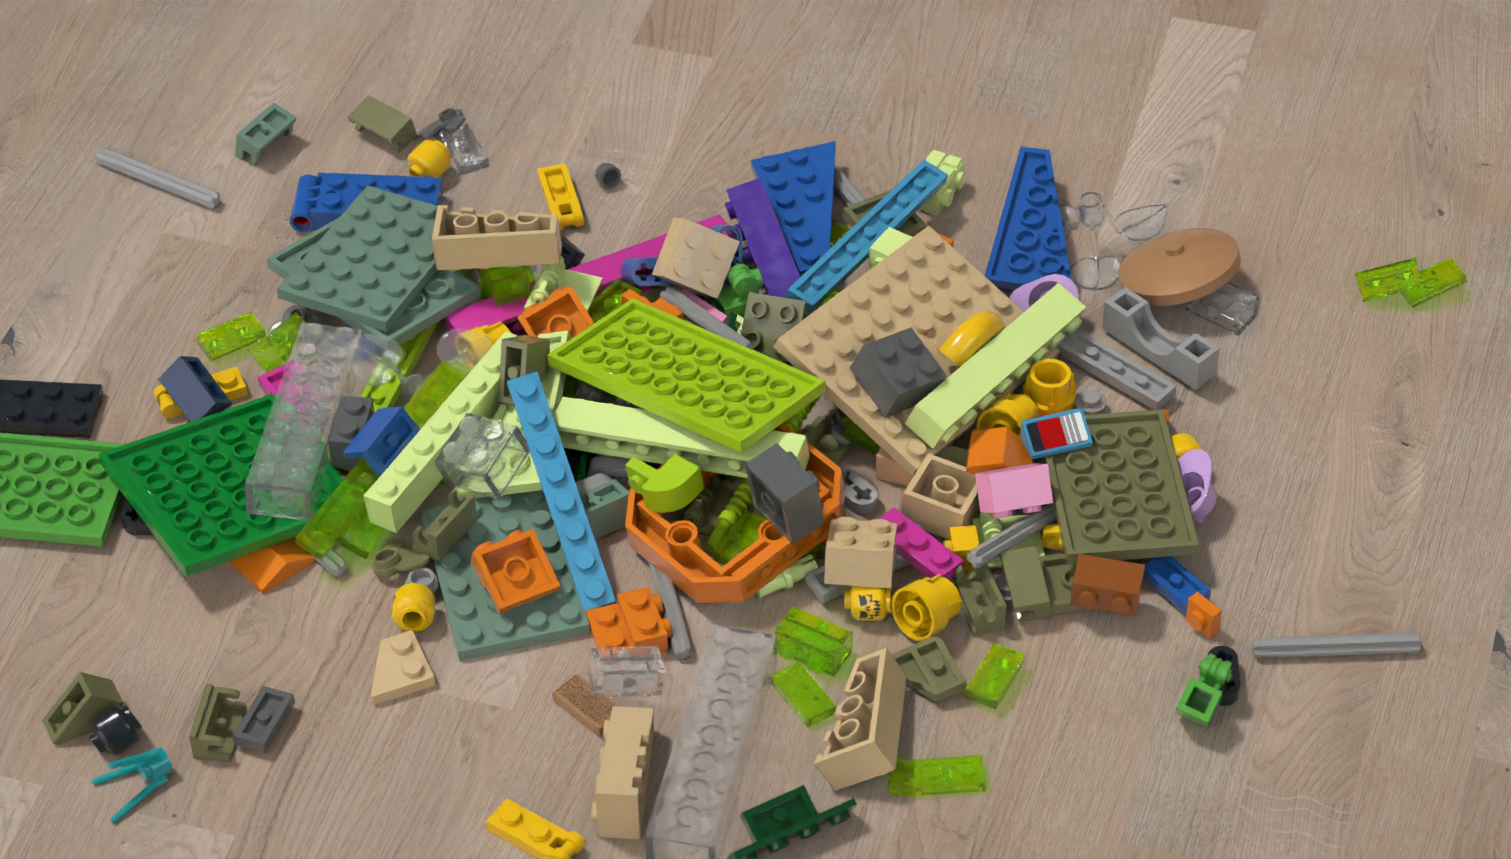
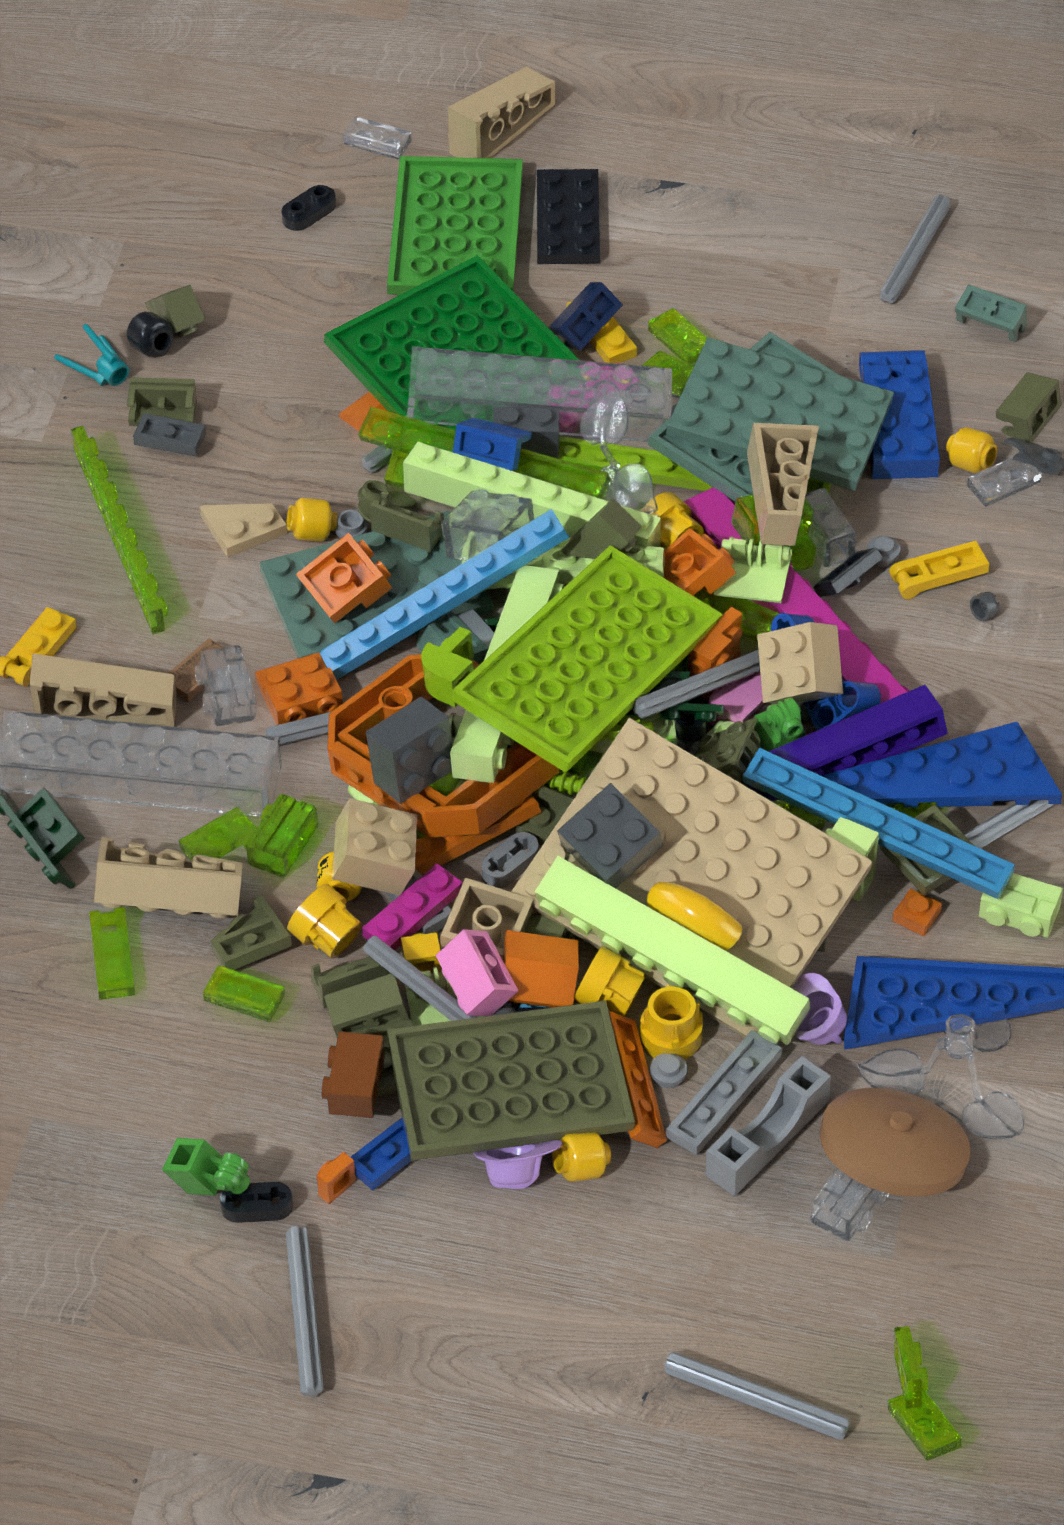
camera: 85 degrees right, 5 degrees up
(389, 761) = (123, 538): none -> clear neon green plate
(1055, 433) = (567, 1011): slope -> none
(1406, 375) = (757, 1395): none -> light grey axle

